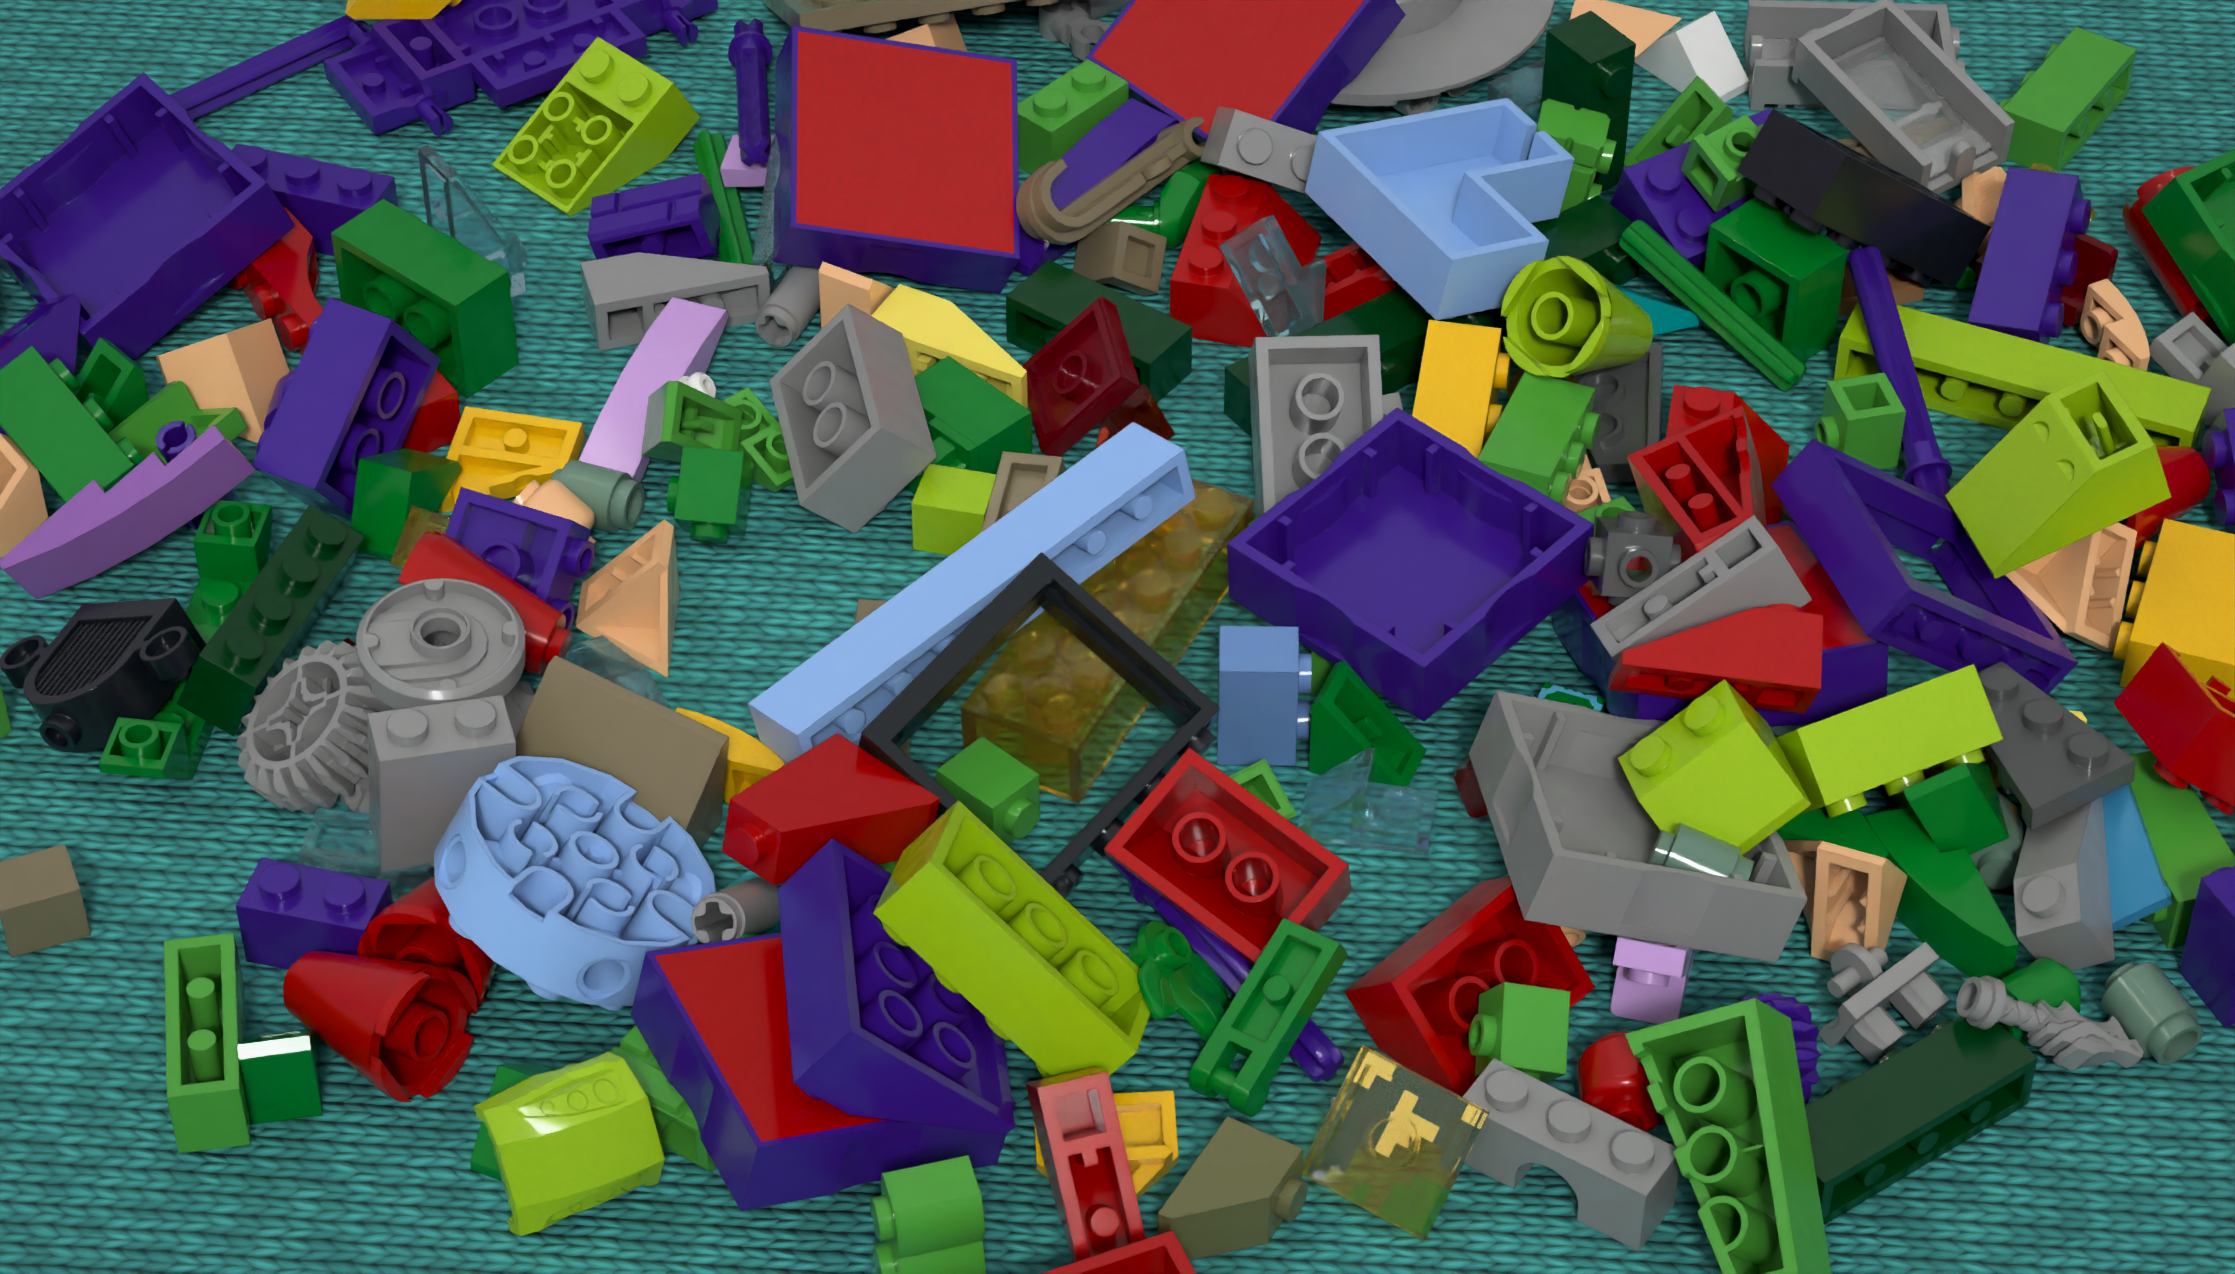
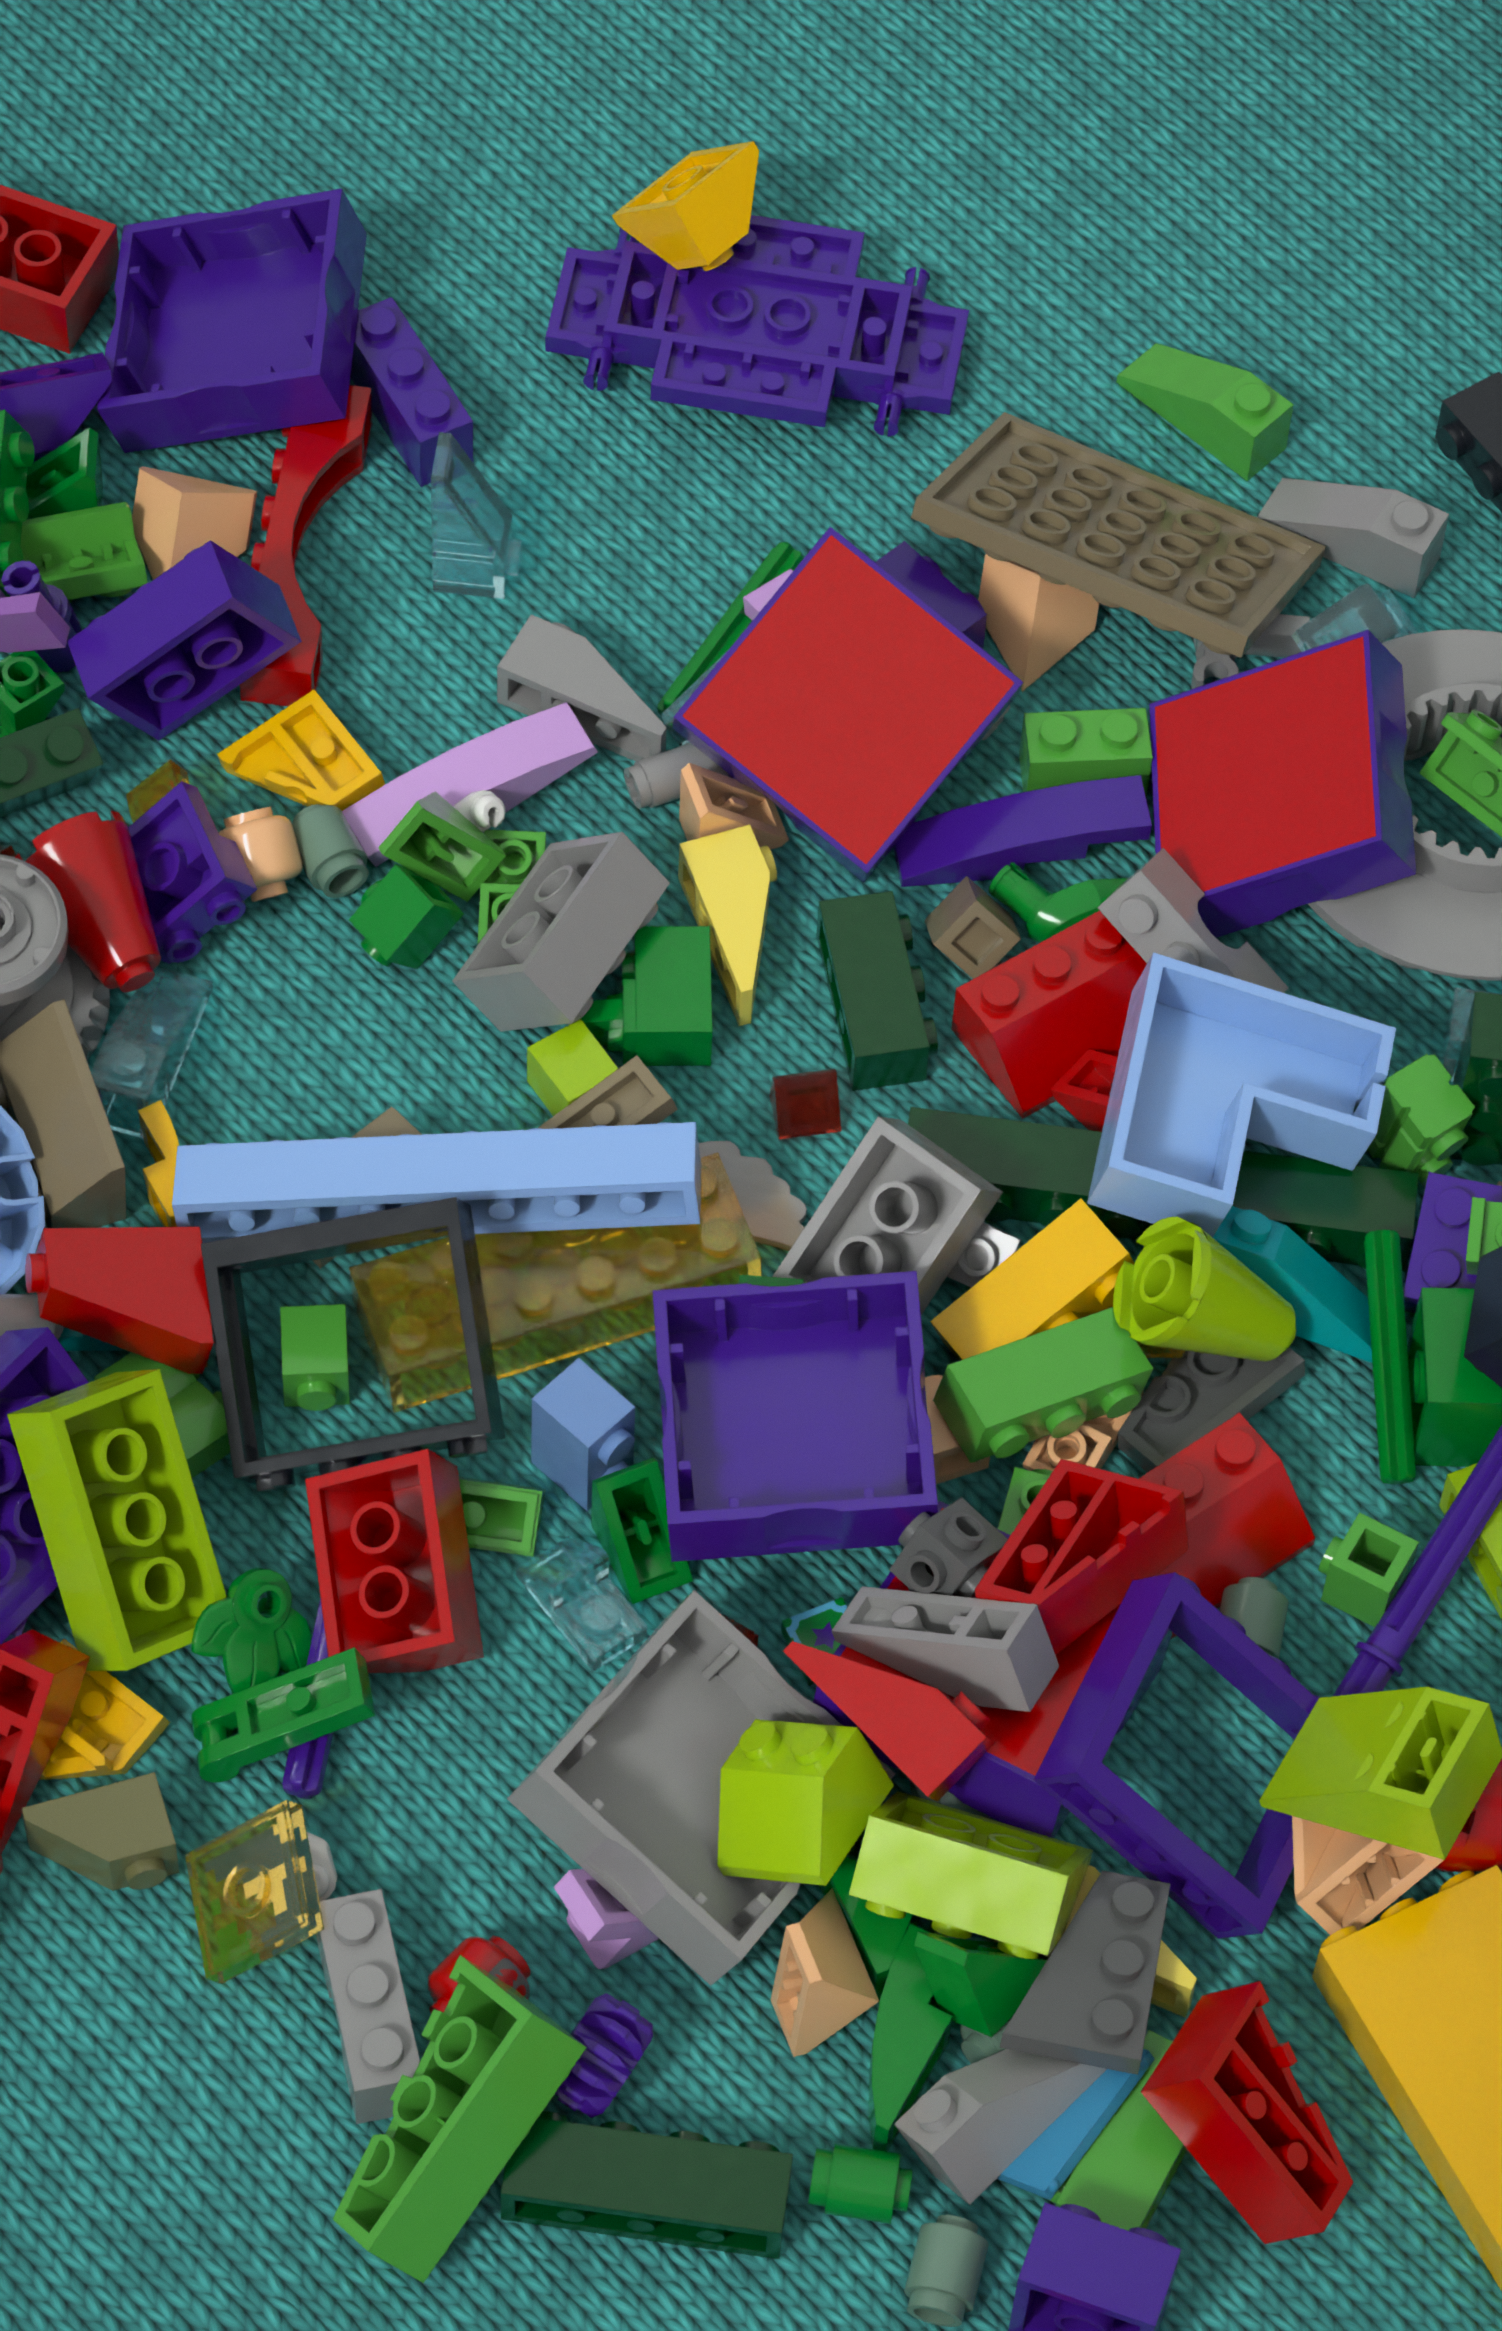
camera: 40 degrees right, 15 degrees up
(265, 69) = (483, 216): dark purple axle -> none
(389, 488) = (189, 729): green slope -> none
(431, 289) = (381, 553): green brick -> none
(597, 130) = (706, 480): lime slope -> none
(636, 599) = (260, 975): light nougat slope -> none
(657, 218) = (637, 615): dark purple brick -> none
(750, 56) = (872, 516): dark purple axle -> none
(1079, 377) = (789, 1025): dark red tile -> none
(1110, 195) = (1012, 862): dark tan piece -> none
(1277, 287) = (1037, 1071): clear light blue slope -> none
(1429, 988) = (446, 1820): red slope -> none
(1522, 1029) = (437, 1885): bright green brick -> none
(1699, 853) = (707, 1861): sand green brick -> none
(1864, 1016) = (786, 2086): light grey hips -> none
(2057, 1030) = (844, 2230): light grey piece -> none

